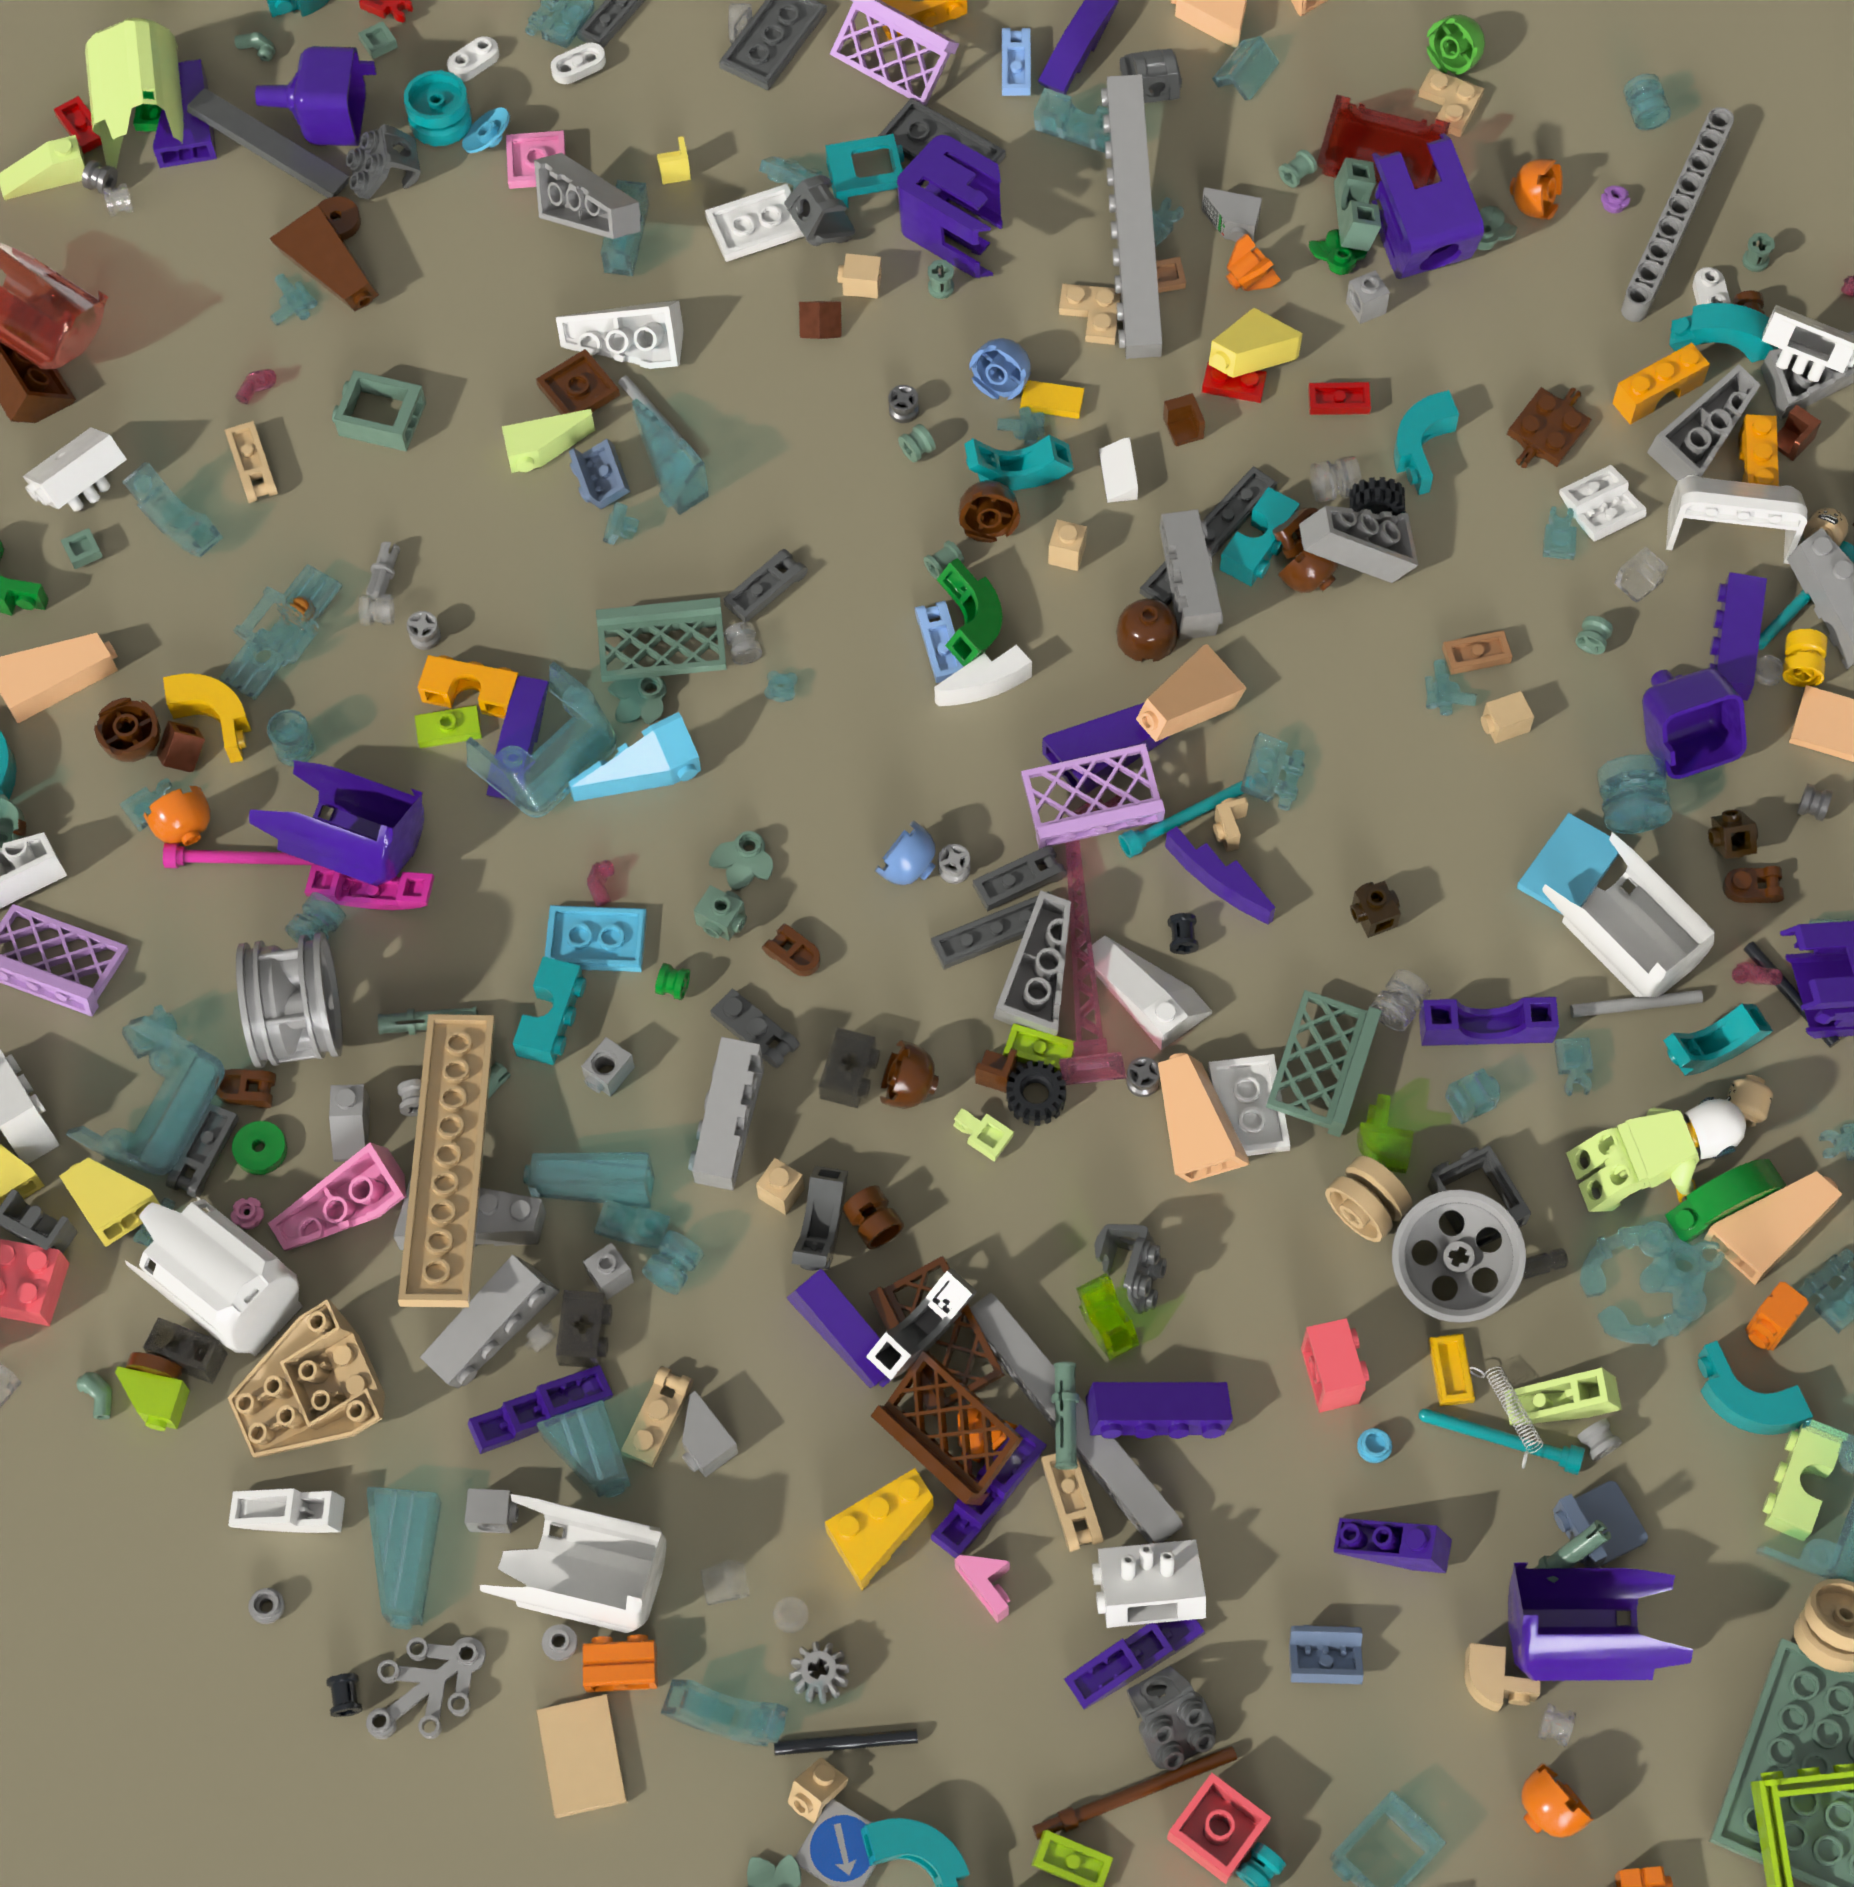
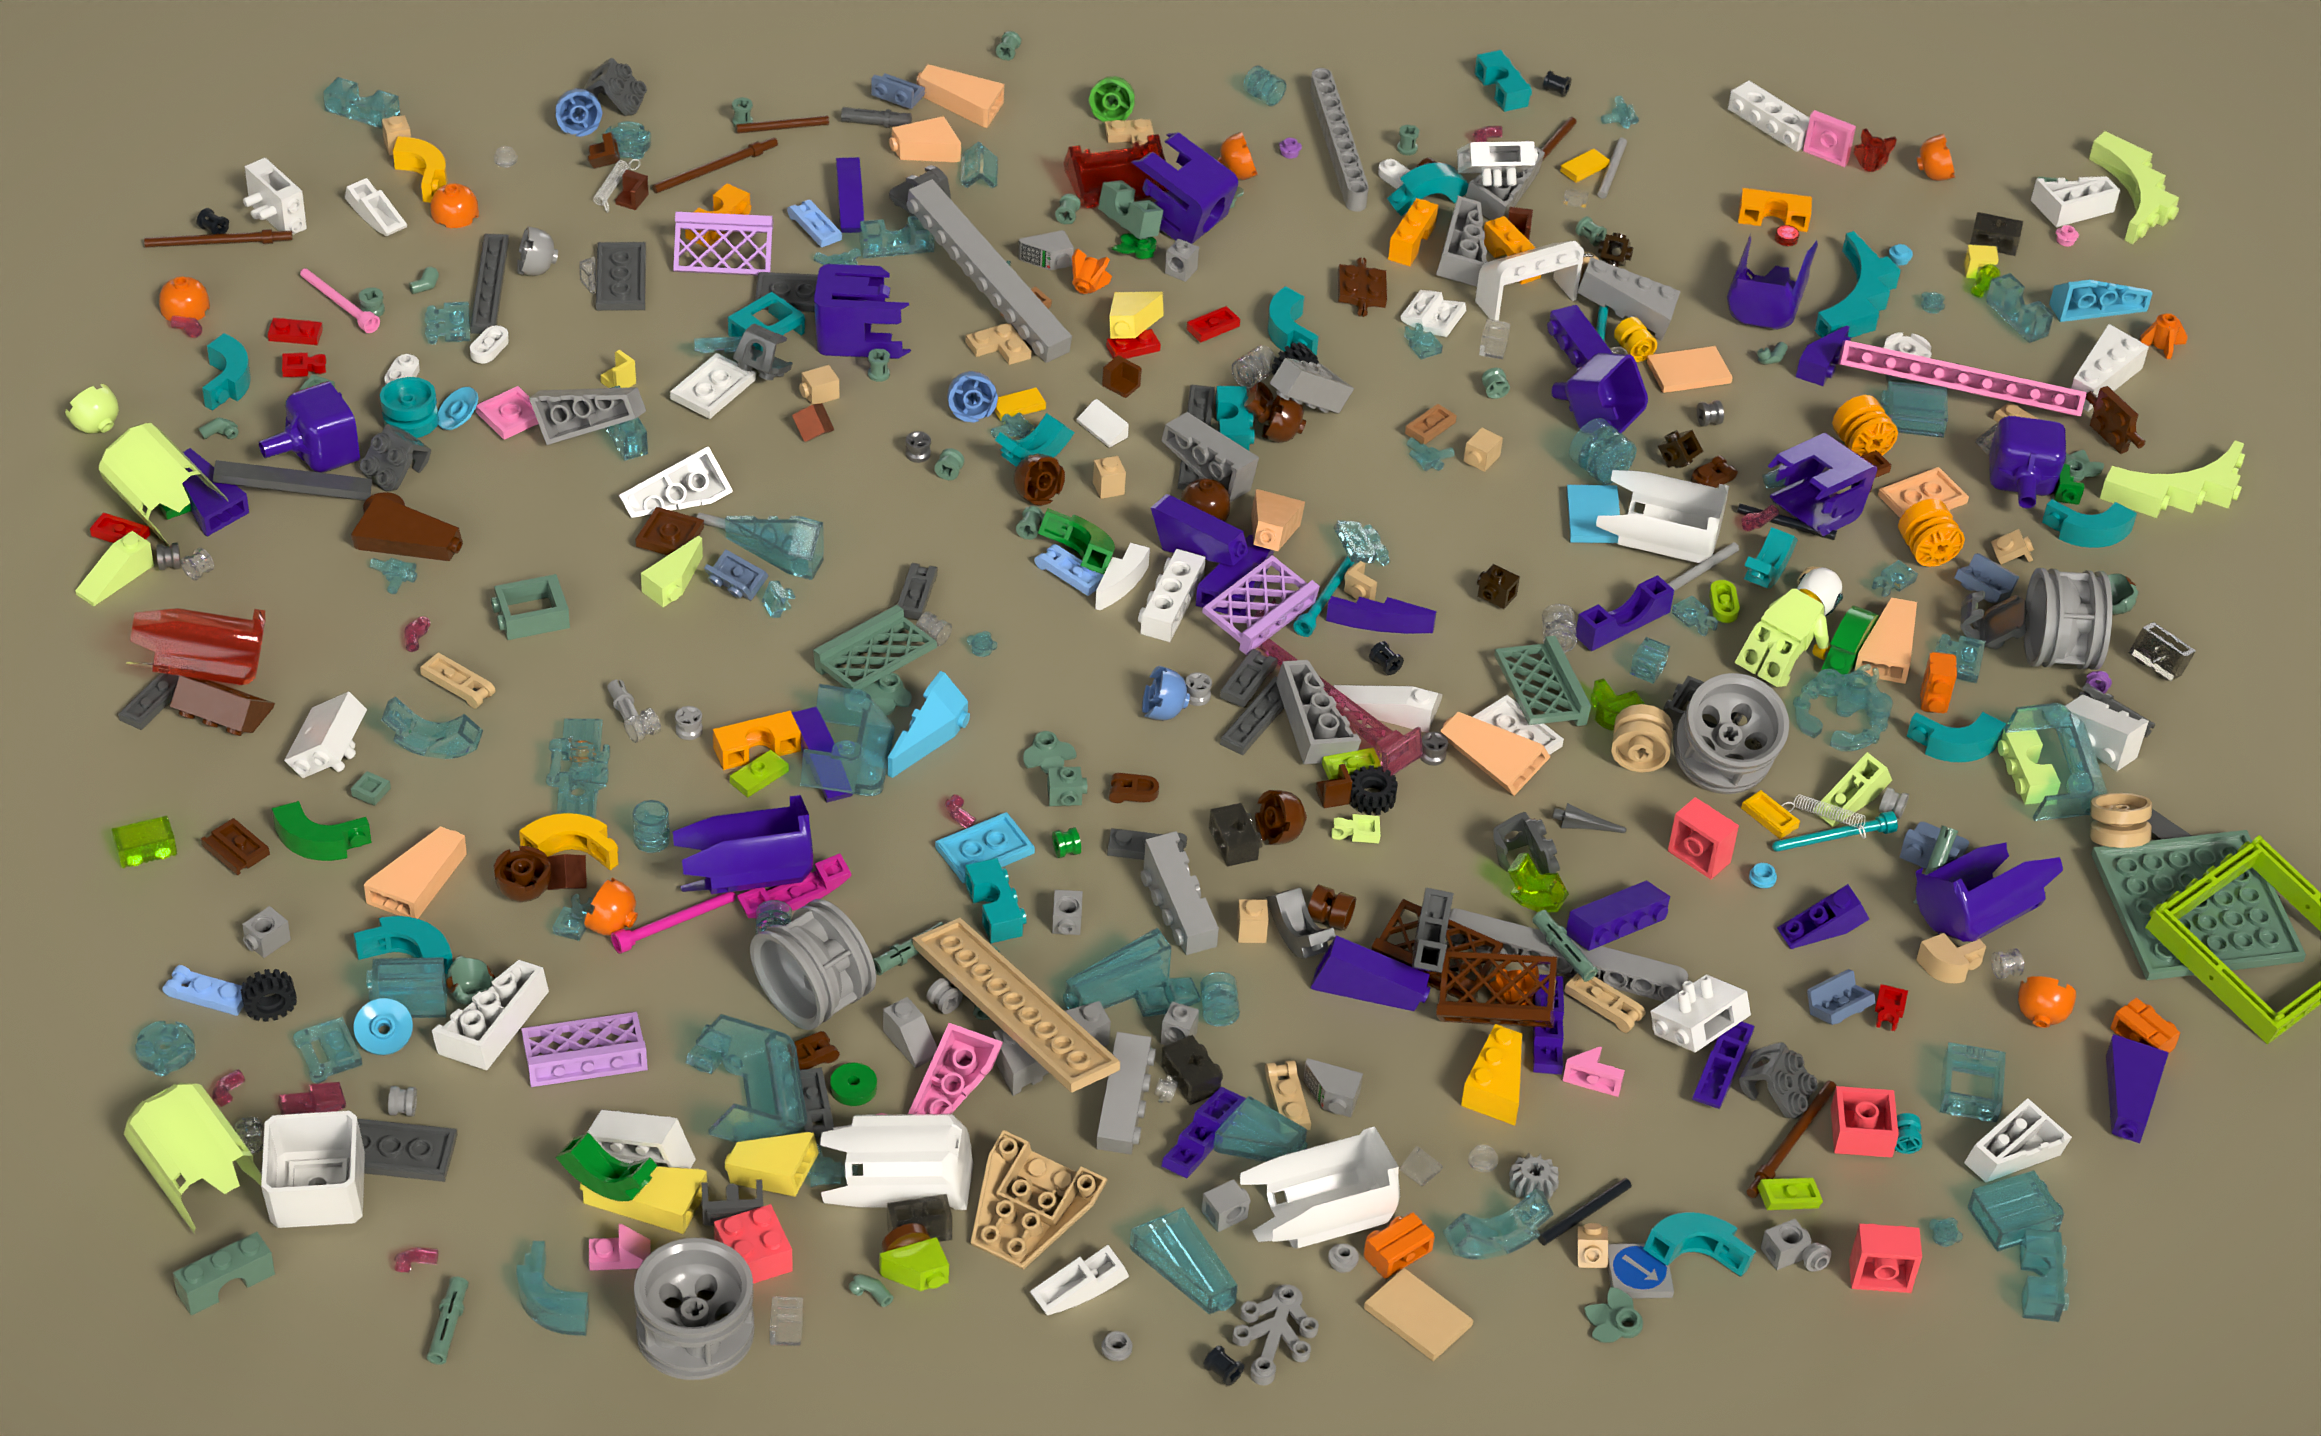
camera: 40 degrees left, 20 degrees down
(1004, 124) = (844, 258): none -> clear light blue piece
(1012, 745) = (1172, 595): none -> white brick
(1090, 671) = (1197, 532): none -> dark purple slope
(1227, 1252) = (1578, 819): none -> dark grey piece
(1381, 1693) = (1890, 1005): none -> red plate
(1623, 1065) = (1724, 601): none -> lime plate

